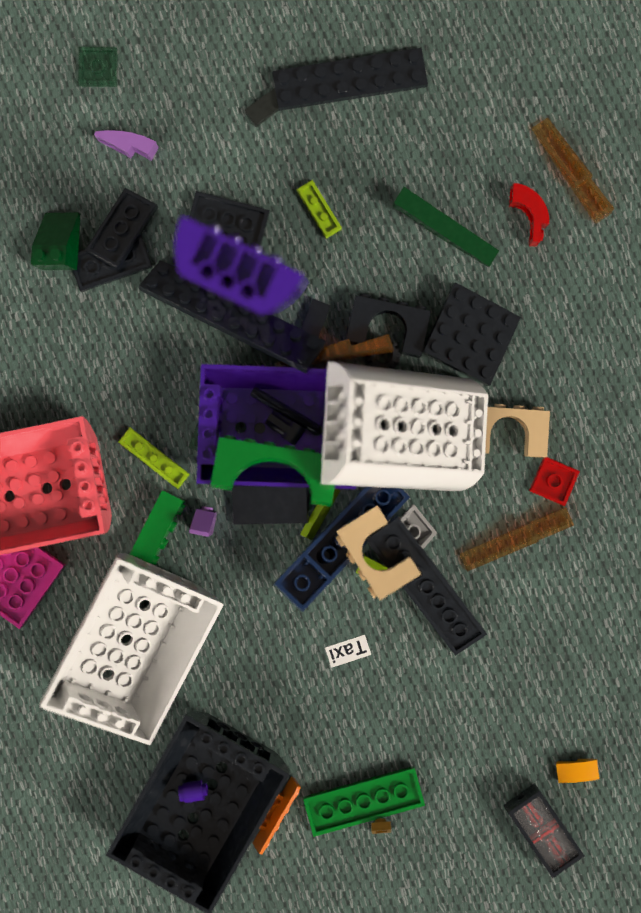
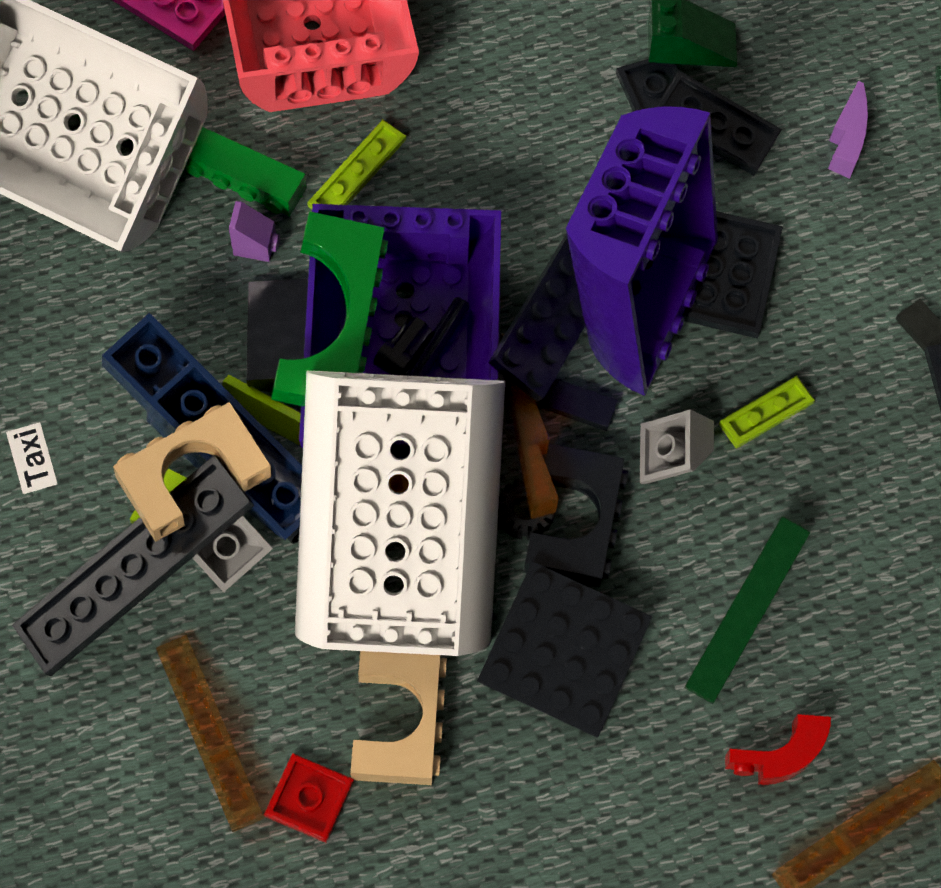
camera: 85 degrees right, 20 degrees down
(345, 265) = (674, 445): none -> light grey slope

